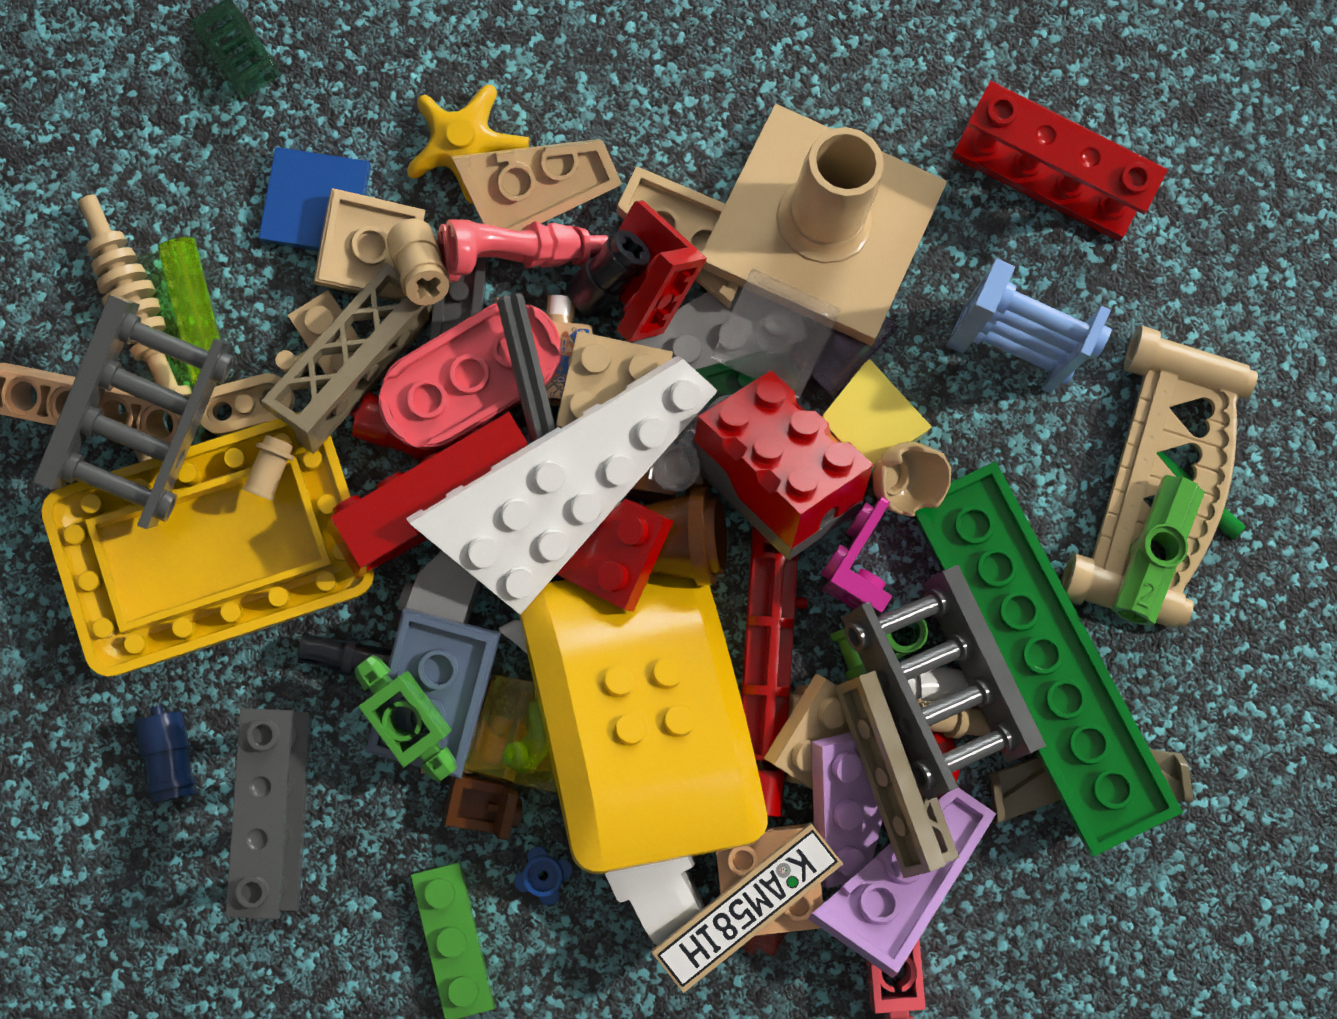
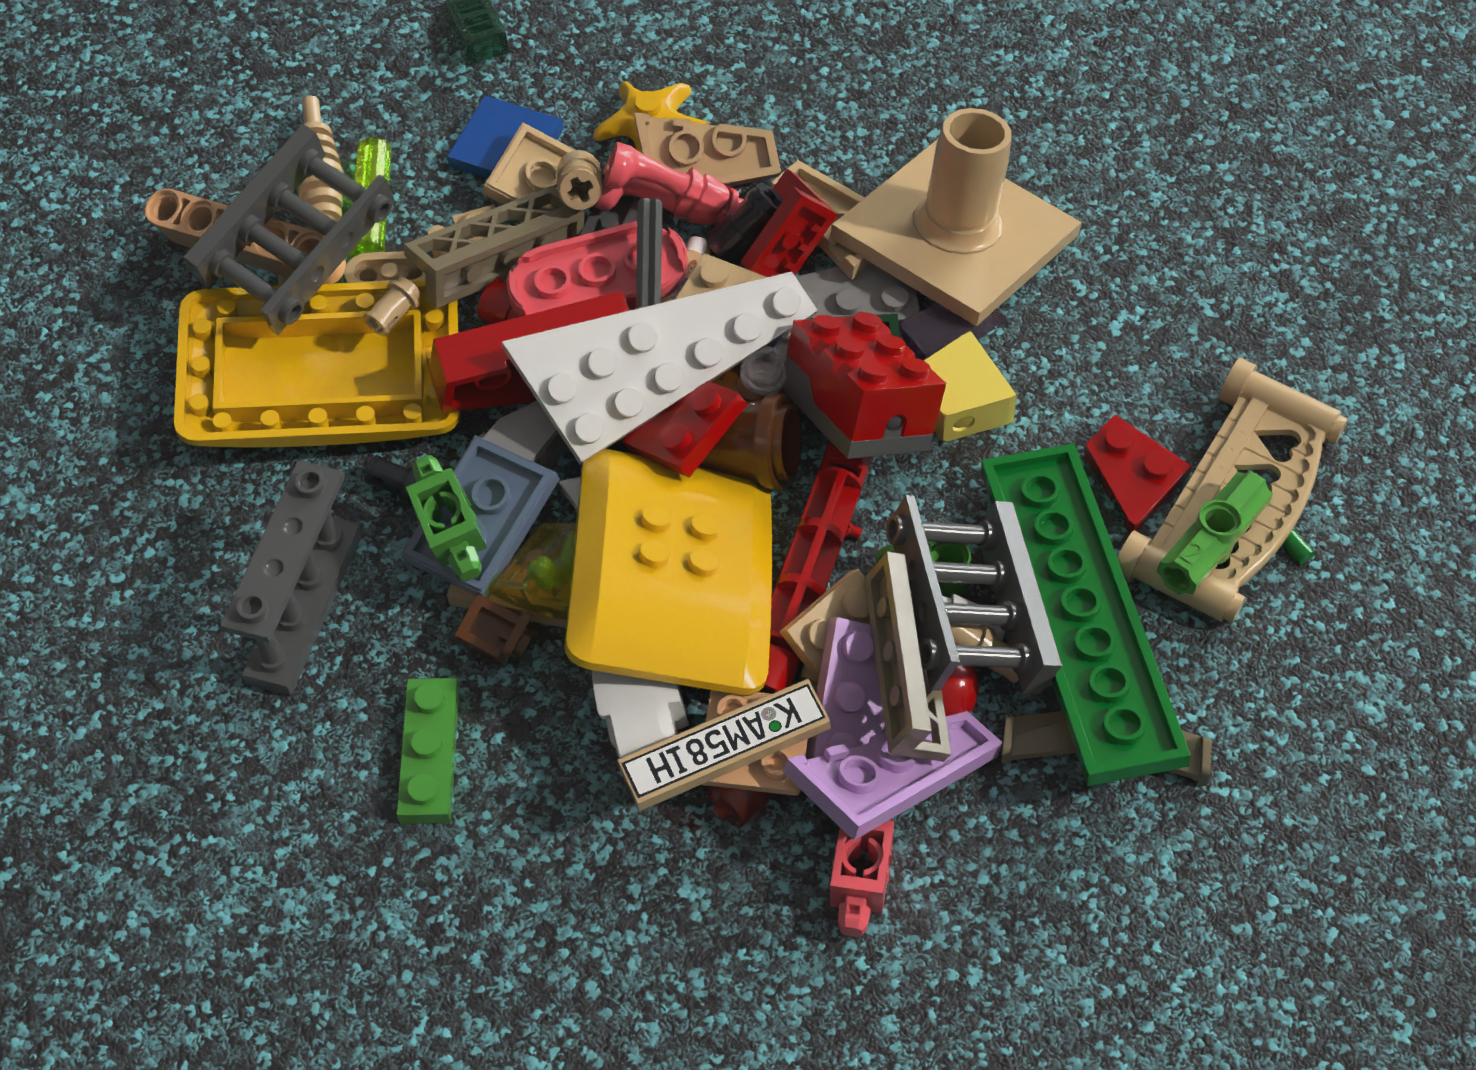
camera: 20 degrees right, 25 degrees down
(165, 755) = (215, 530): dark blue piece -> none
(545, 889) = (530, 697): blue plate -> none
(775, 331) = (890, 285): clear tile -> none
(863, 586) = (919, 474): dark pink bracket -> none
(911, 477) = (985, 426): tan hair -> none
(1028, 327) = (1079, 309): light blue fence -> none
(1057, 471) = (1134, 470): none -> red wing
(1058, 162) = (1169, 232): red fence -> none

